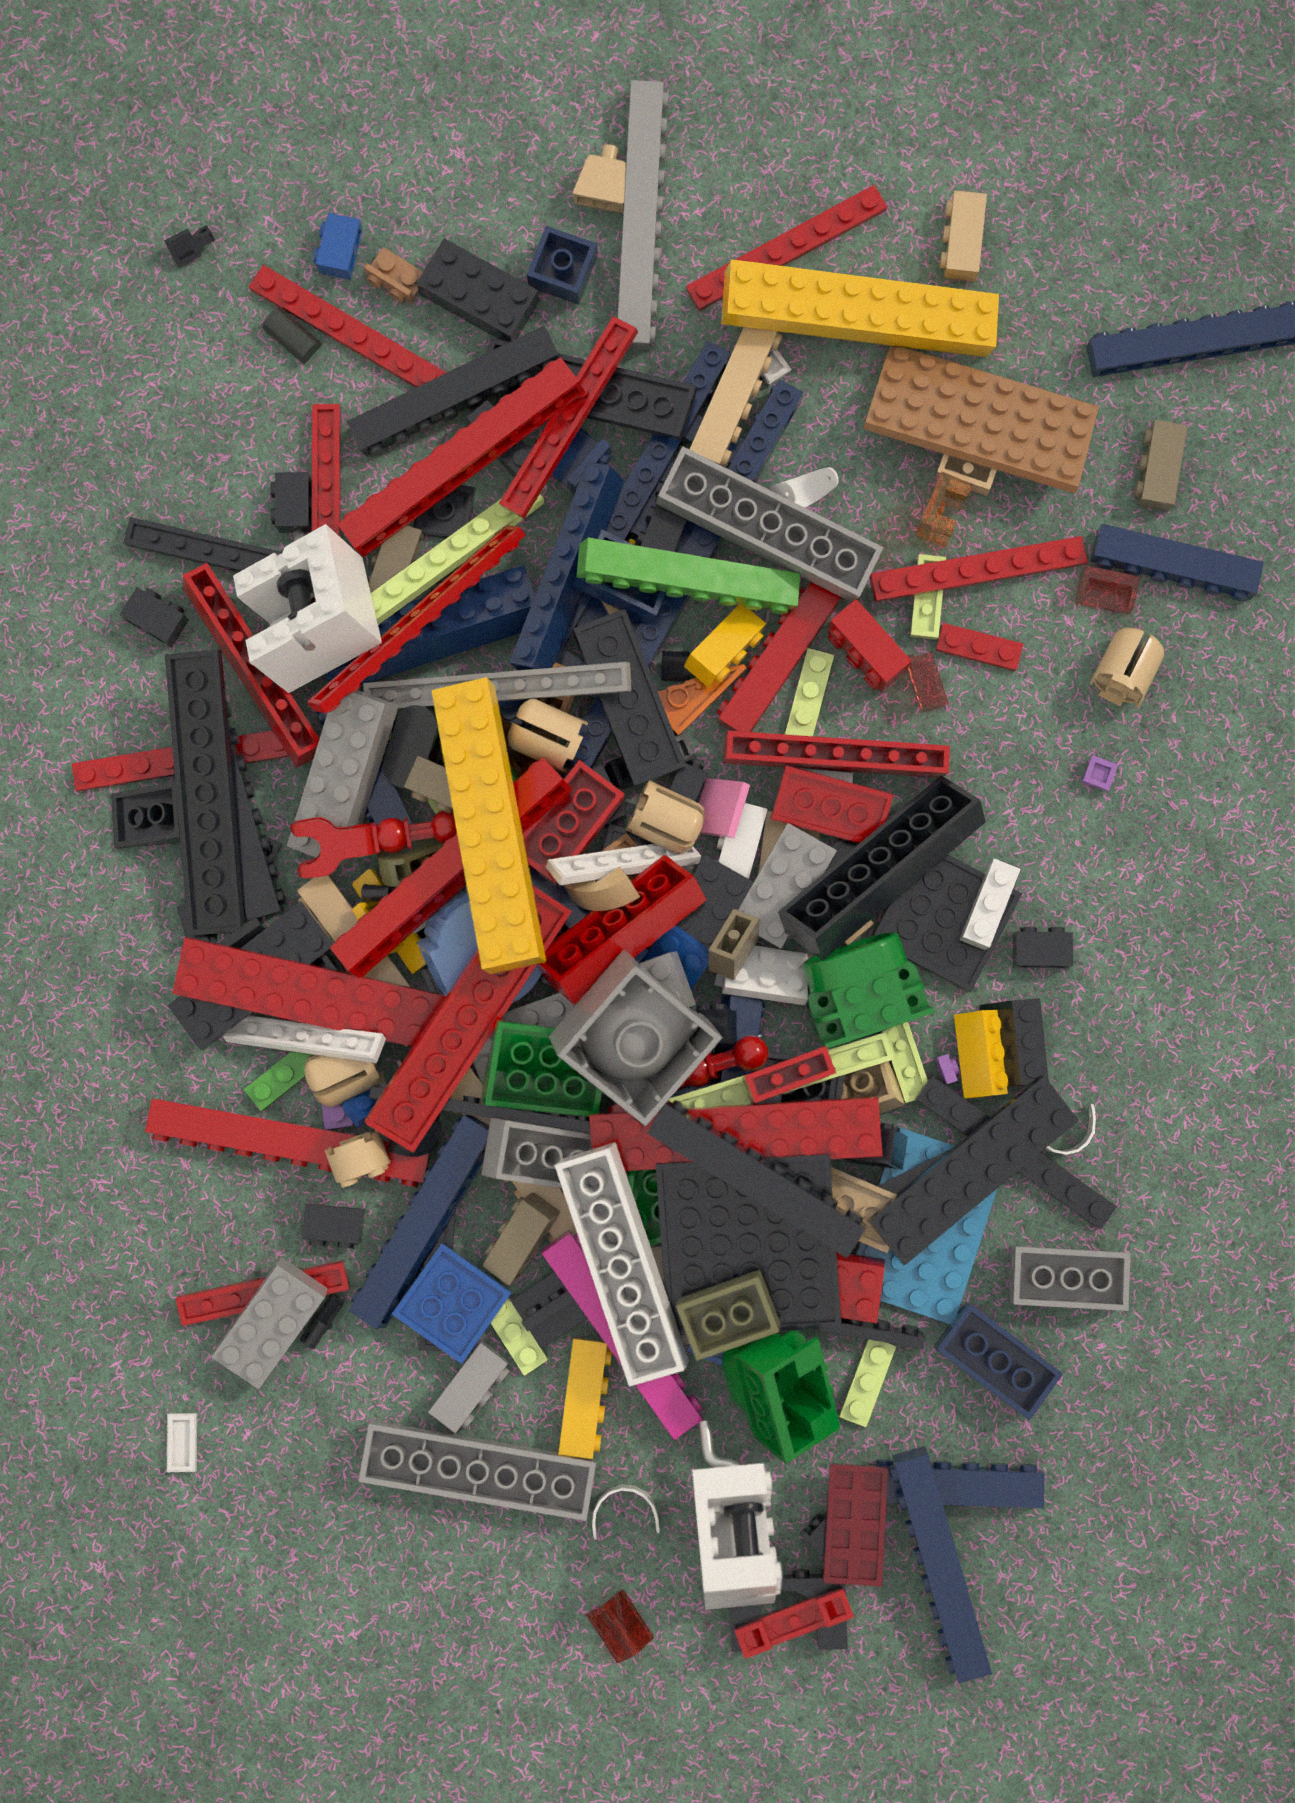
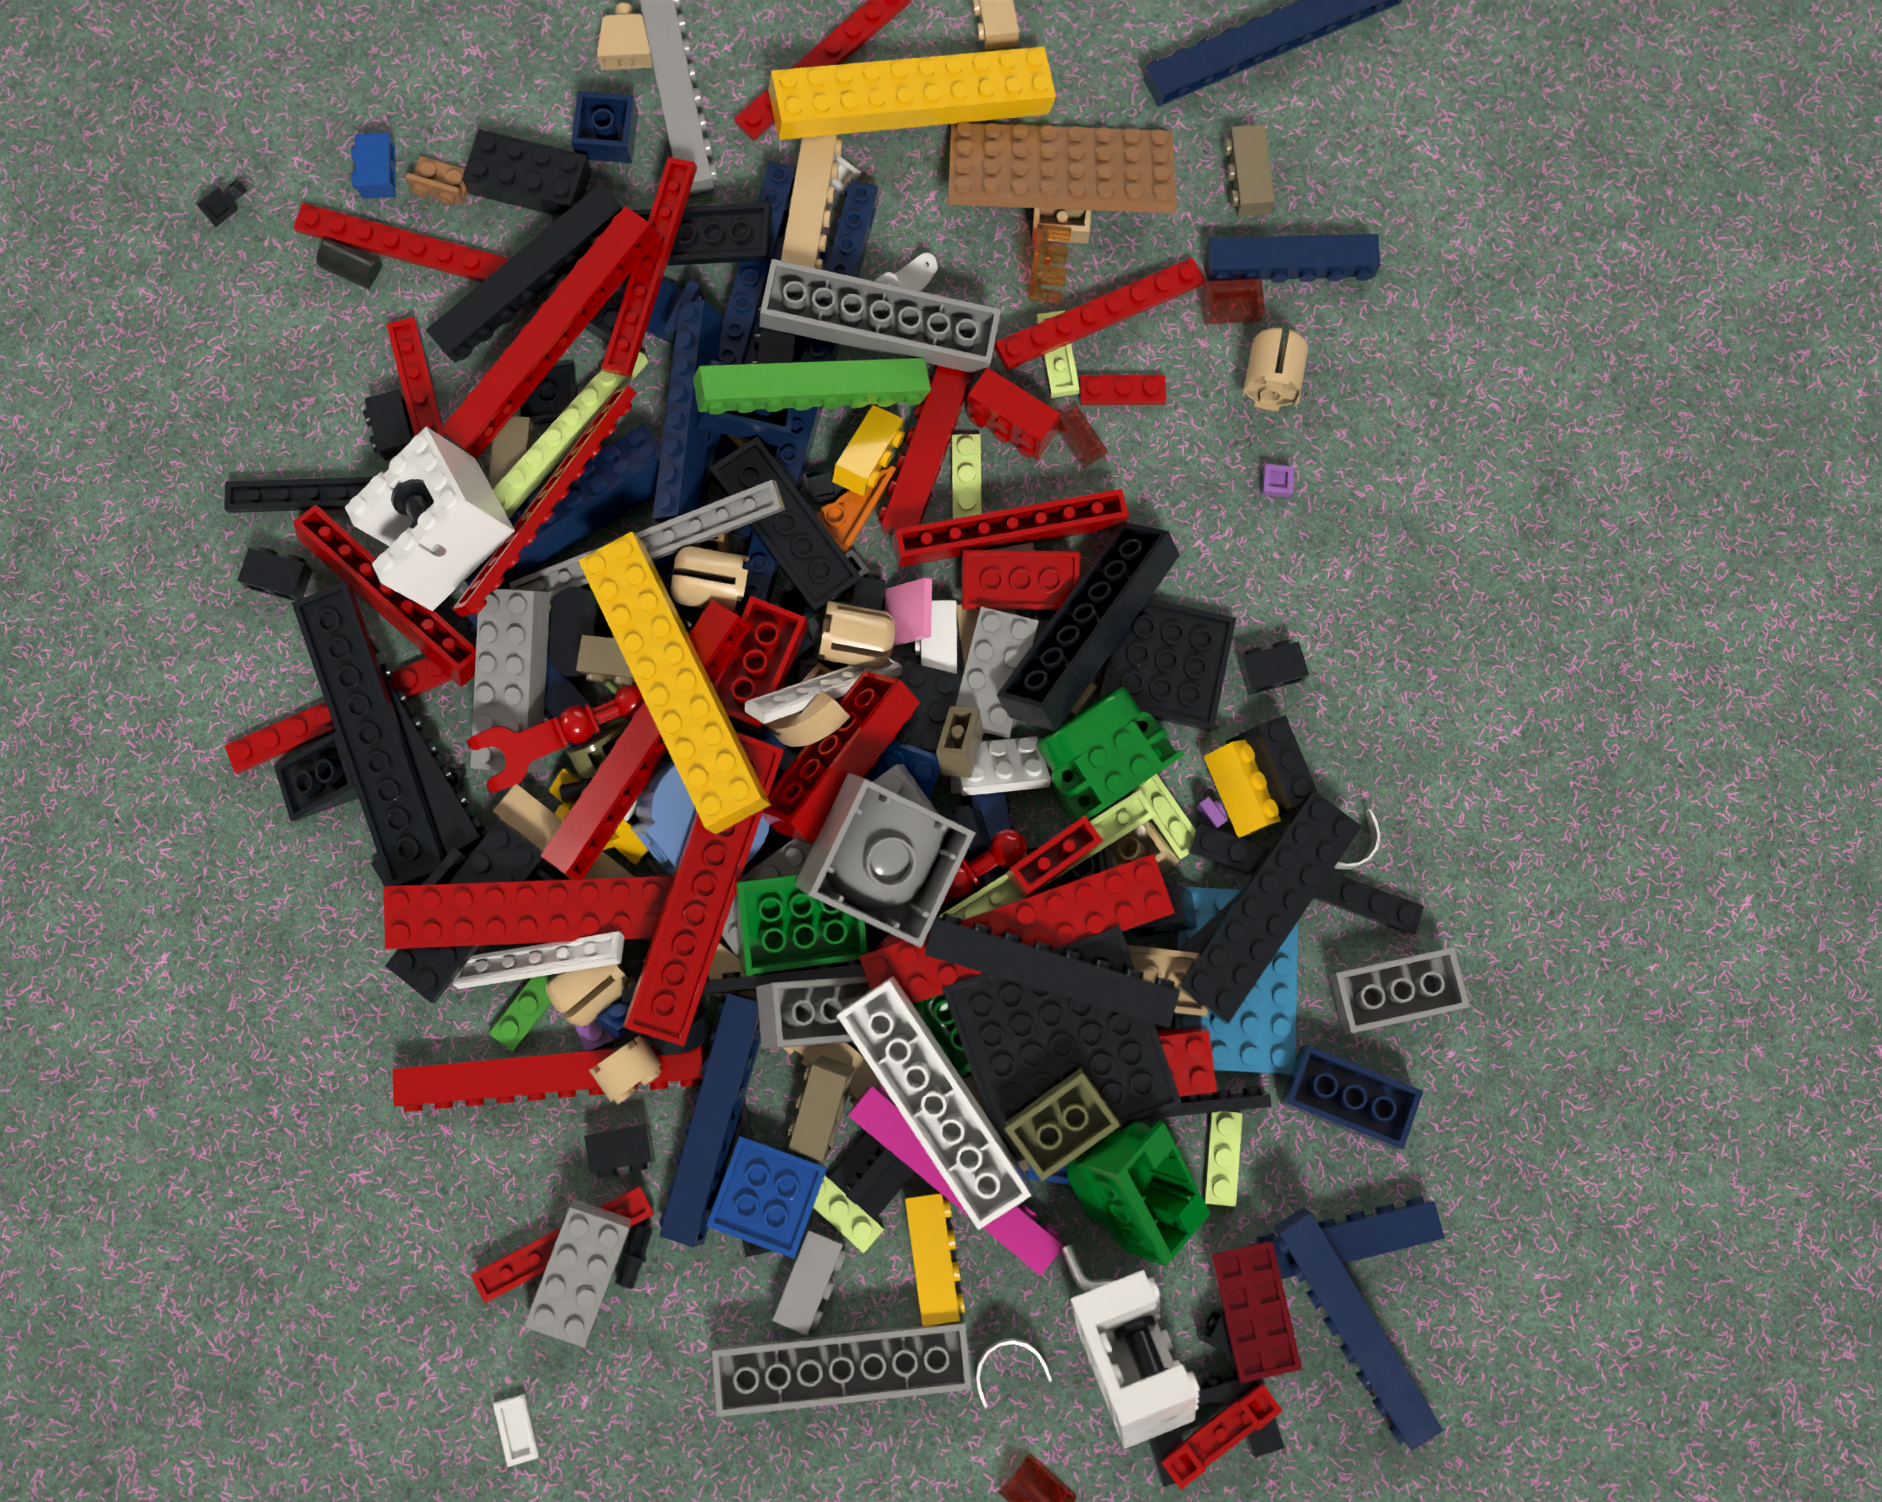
camera: 20 degrees left, 5 degrees down
(989, 904) = (1207, 635): white brick -> none

